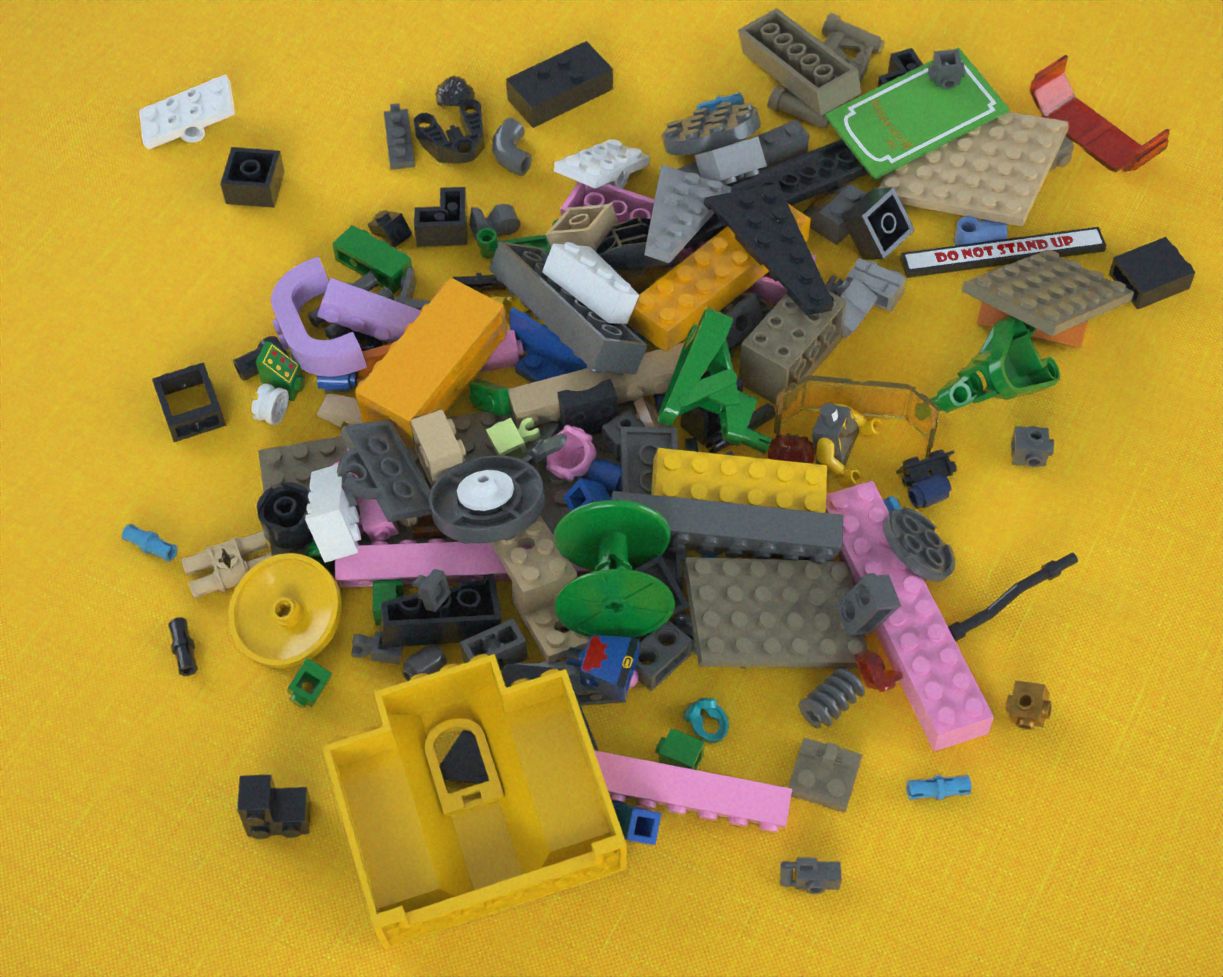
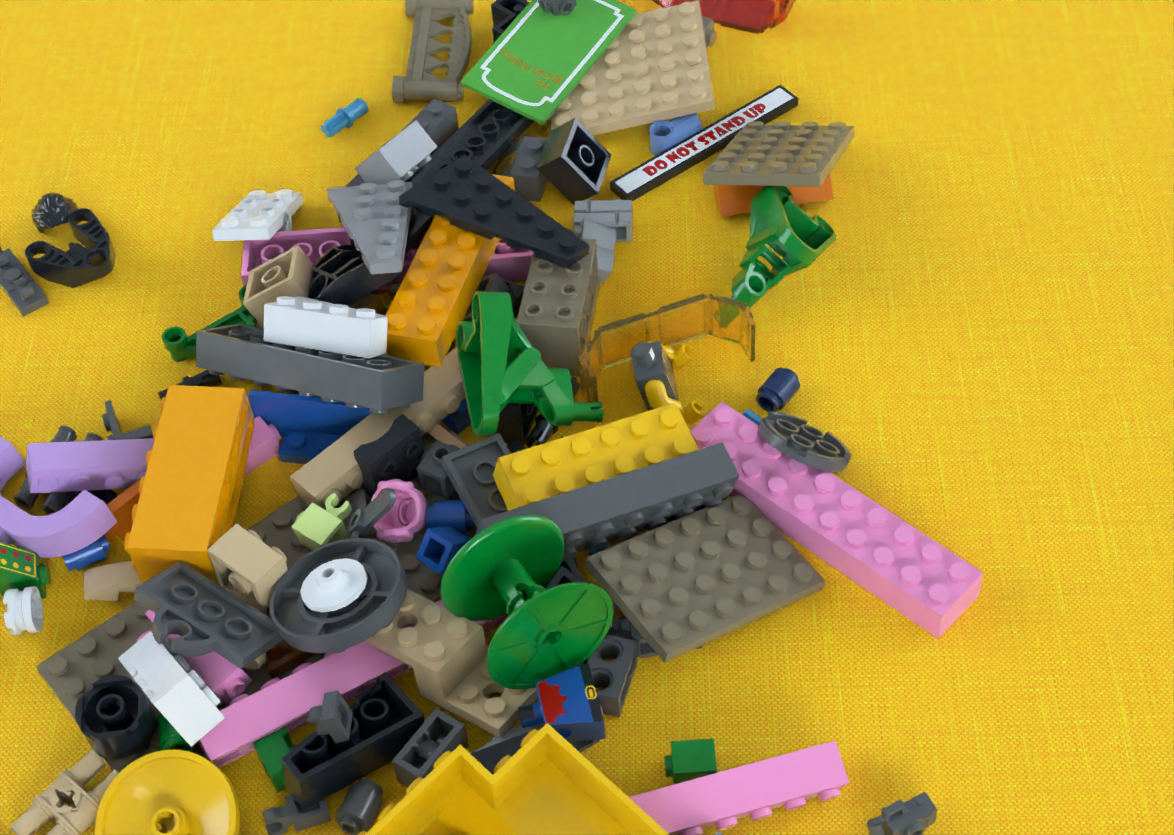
camera: 25 degrees left, 5 degrees down
(368, 254) = (46, 409): green brick -> none
(392, 226) = (59, 369): black bracket -> none
(443, 224) = (118, 343): black brick -> none
(490, 397) = (273, 494): green plate -> none
(501, 220) = (176, 313): dark grey leg -> none
(505, 147) = (142, 245): dark grey cylinder -> none
(559, 84) = (164, 161): black brick -> none
(692, 715) = (680, 719): teal piece -> none
(710, 129) = (353, 139): dark grey piece -> none
(791, 448) = (622, 406): clear red gear -> none
(799, 61) = (405, 44): dark tan brick -> none
(824, 774) = (849, 712): dark tan hinge -> none
(830, 697) = (810, 633): dark grey piece -> none
(868, 604) = (796, 520): dark grey brick -> none
(873, 672) = (836, 587): clear red bracket -> none
(936, 463) = (753, 376): black hinge -> none
(938, 787) = (968, 670): dark azure pin -> none
(1029, 705) = (1004, 547): pearl gold brick -> none
(1031, 446) = (848, 305): dark grey brick -> none
(1048, 571) = (941, 412): black bar -> none
(1152, 272) = (858, 102): black brick -> none

